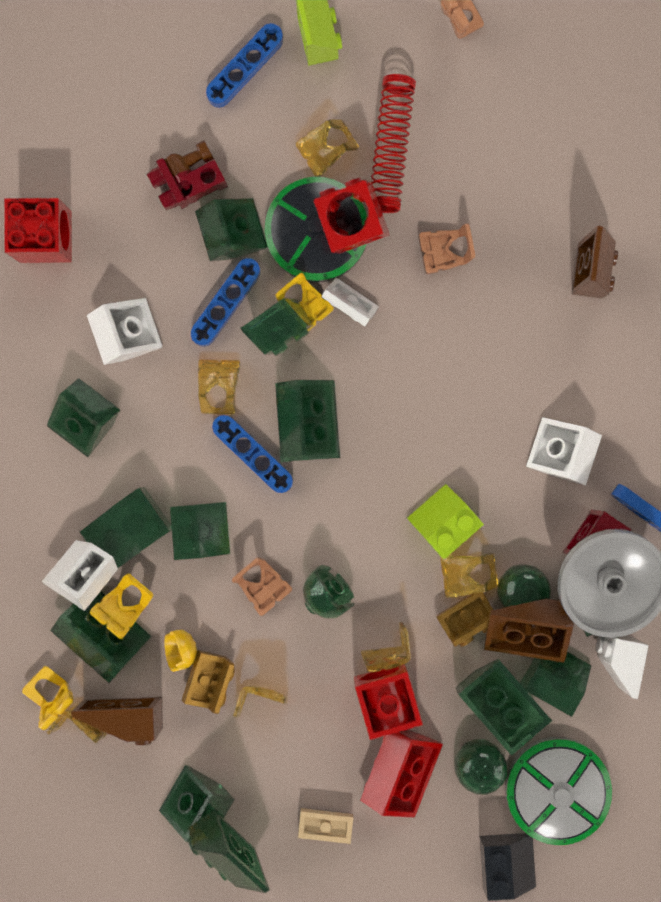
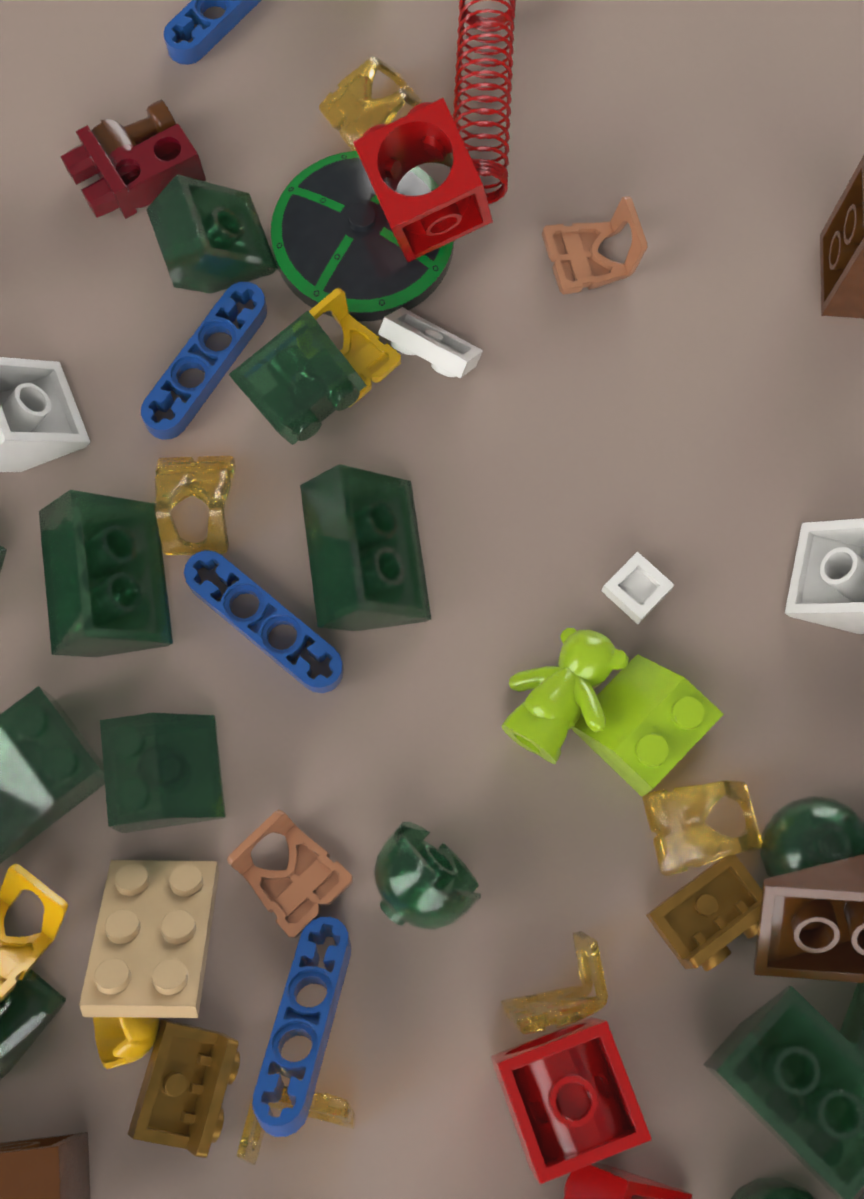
camera: 10 degrees left, 15 degrees down
(170, 425) = (103, 576): none -> clear green slope
(194, 613) = (151, 940): none -> tan plate
(263, 657) = (302, 1021): none -> blue beam
(405, 504) = (563, 693): none -> lime piece
(449, 449) = (637, 587): none -> white plate

